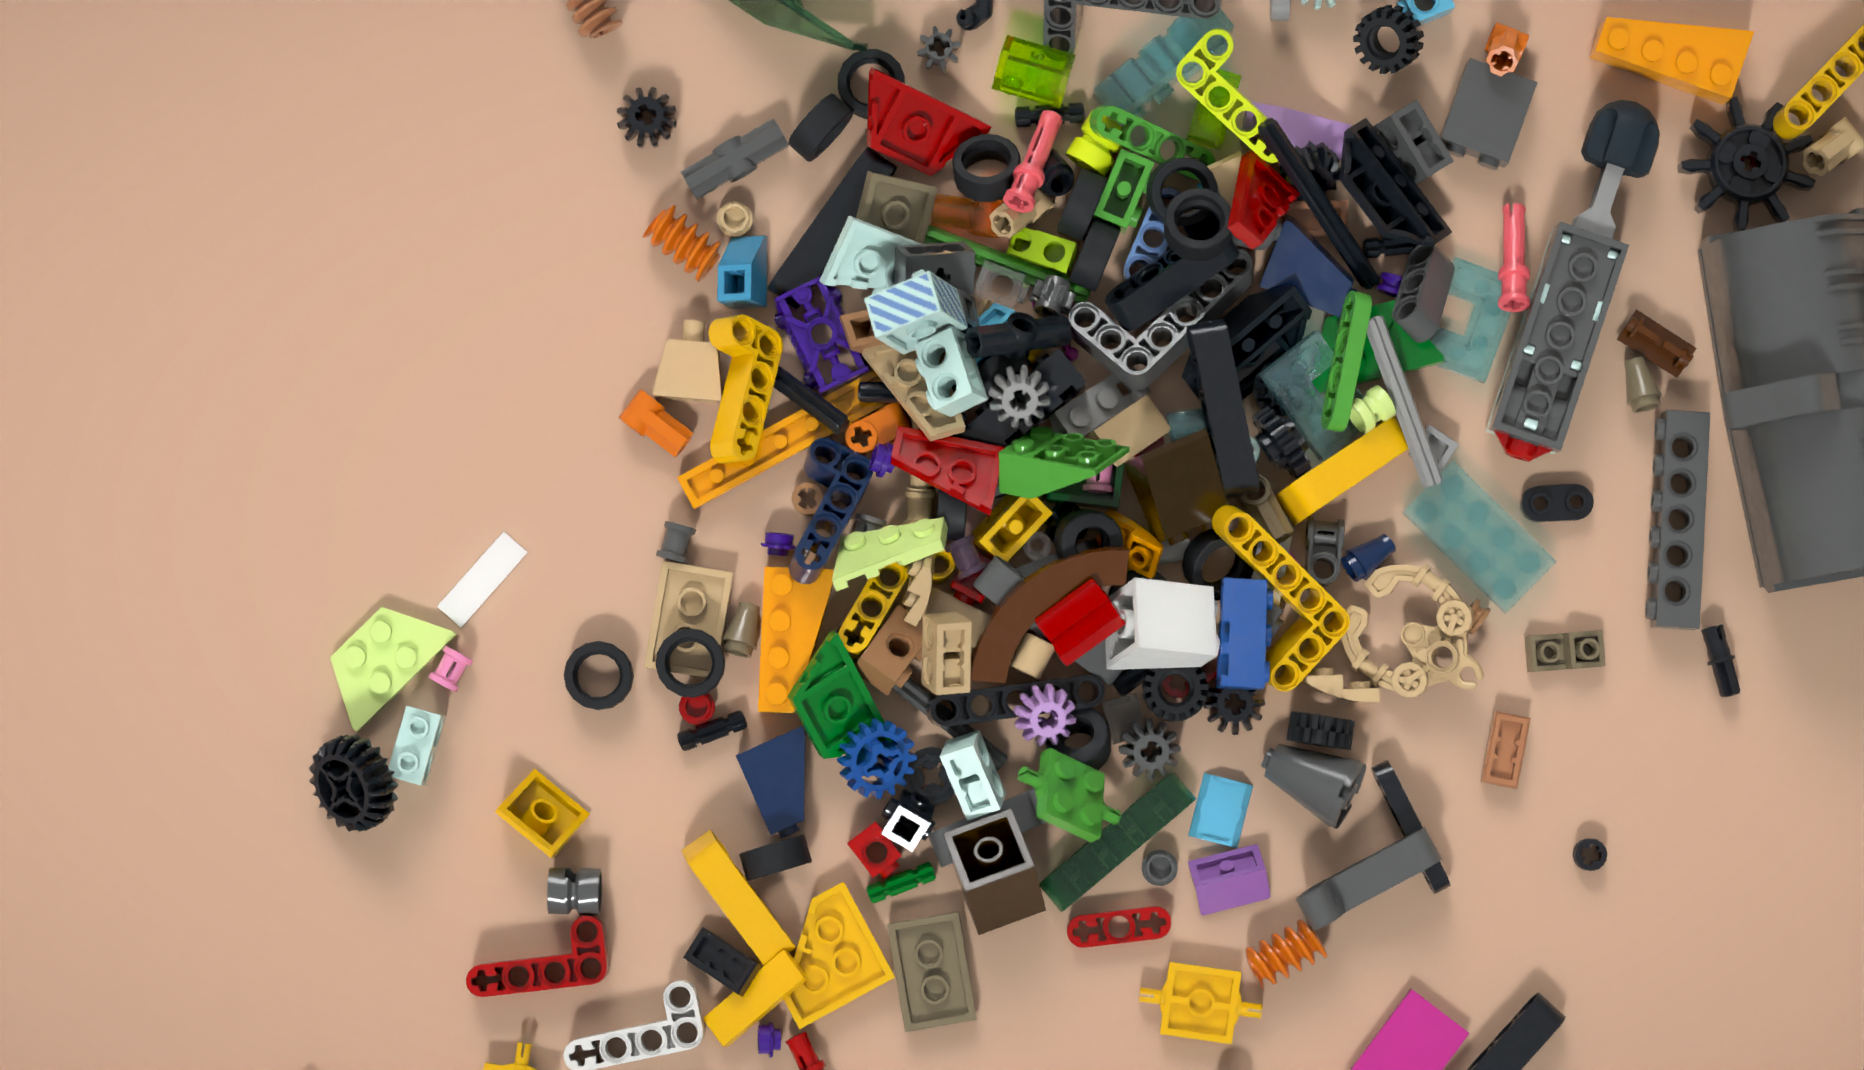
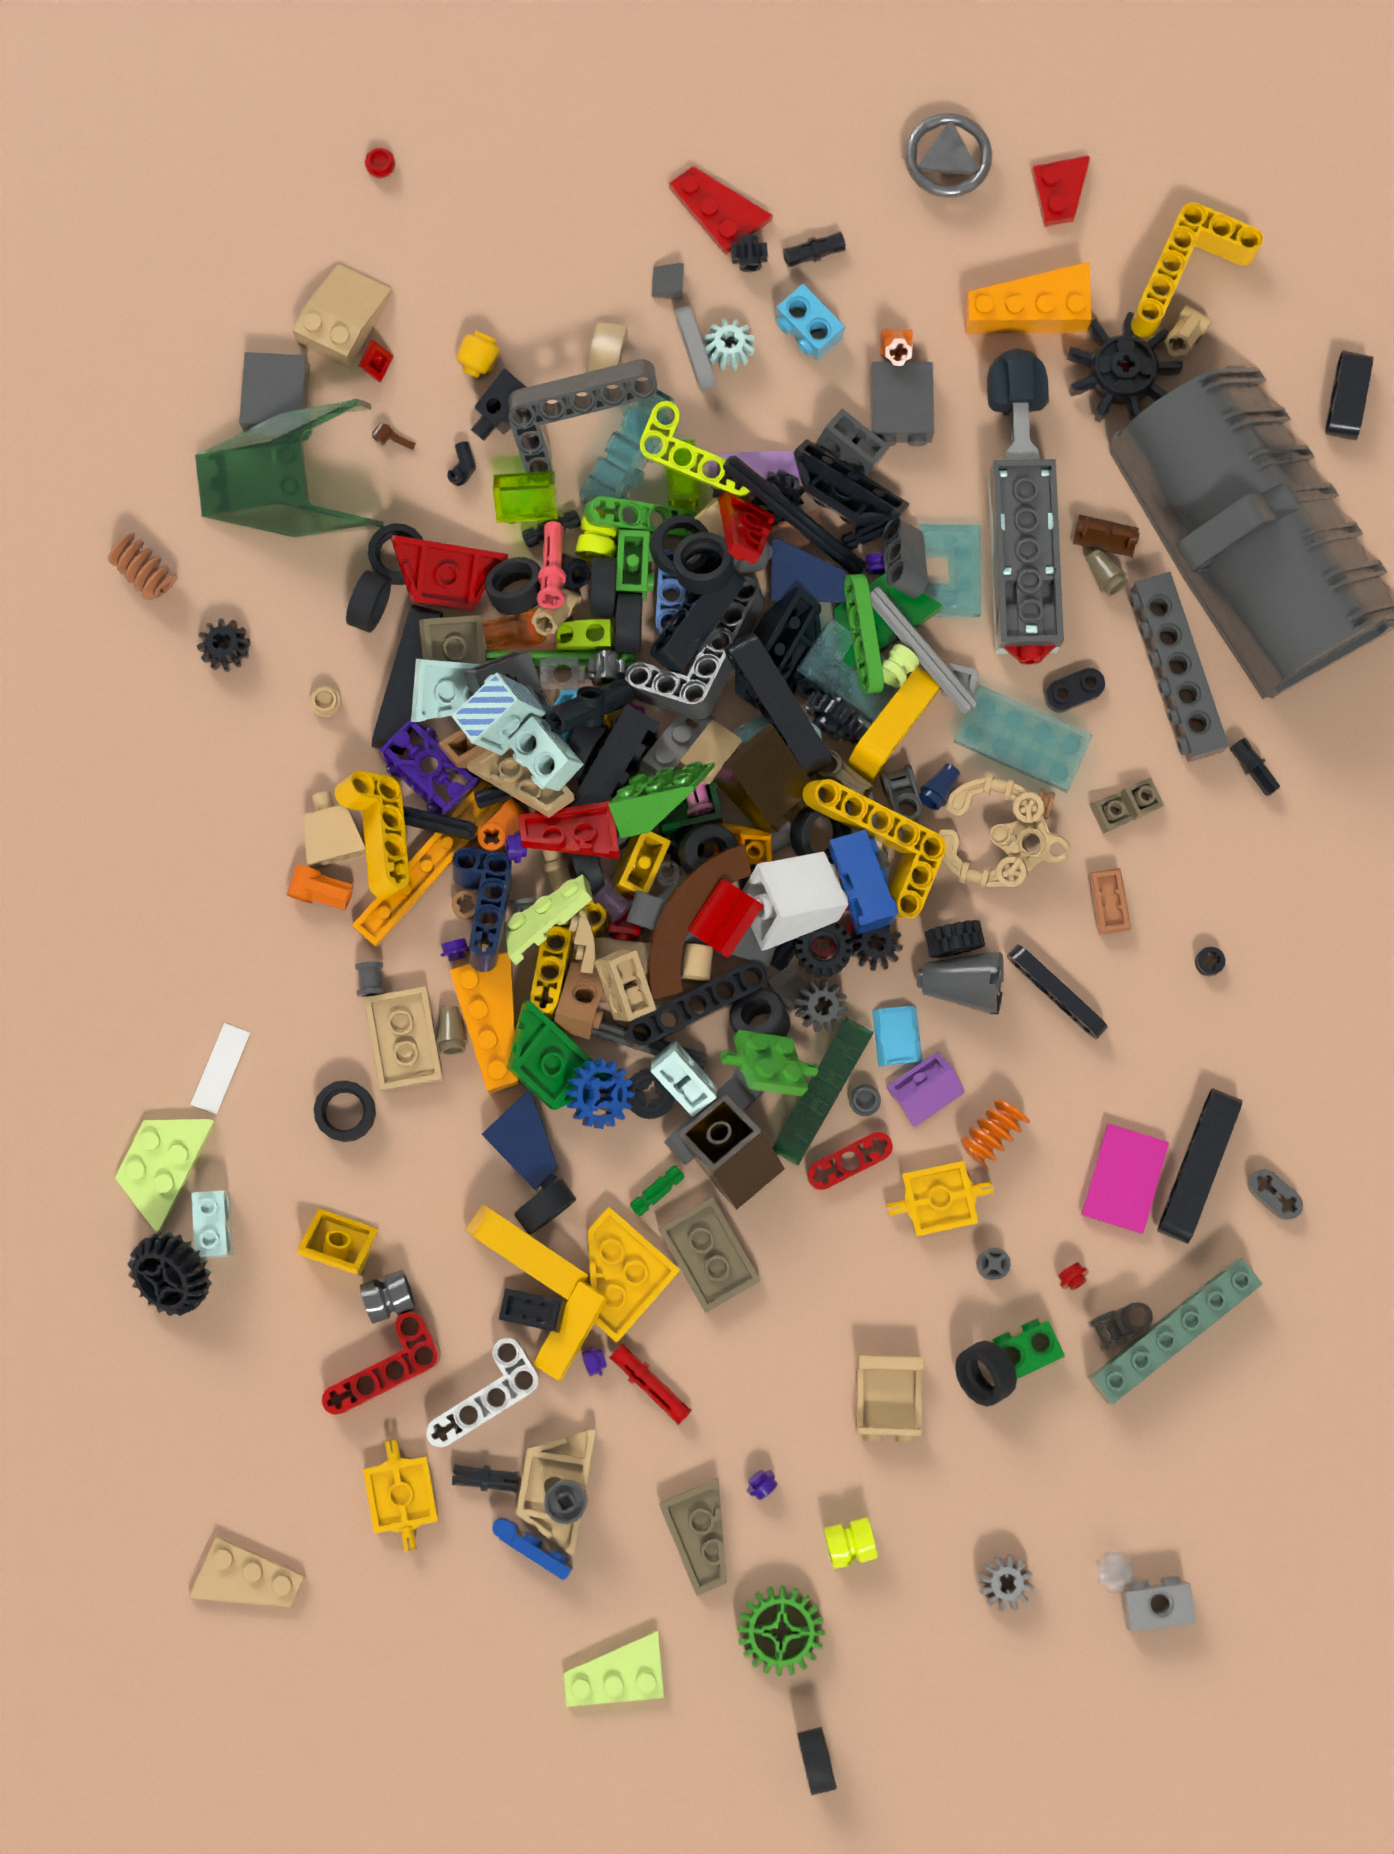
camera: 25 degrees left, 5 degrees down
(457, 670) = (226, 1143): bright pink bush -> none
(674, 641) = (393, 1067): black tyre -> none
(683, 241) = (289, 734): orange piece -> none
(697, 709) = (435, 1107): red plate -> none
(712, 730) = (455, 1122): black axle -> none
(735, 159) = (308, 652): dark grey piece -> none
(743, 273) = (348, 741): dark azure slope -> none
(861, 842) = (618, 1159): red brick -> none
(908, 819) = (643, 1145): black brick -> none
(932, 56) = (437, 513): dark grey gear -> none
(1005, 393) = (597, 753): light grey gear -> none
(1040, 727) = (727, 993): lavender gear -> none
(1327, 683) = (949, 900): tan slope -> none
(1368, 878) = (1039, 1043): dark grey beam -> none
(1406, 32) = (818, 366): black tyre -> none
(1514, 272) = (971, 517): coral pin -> none

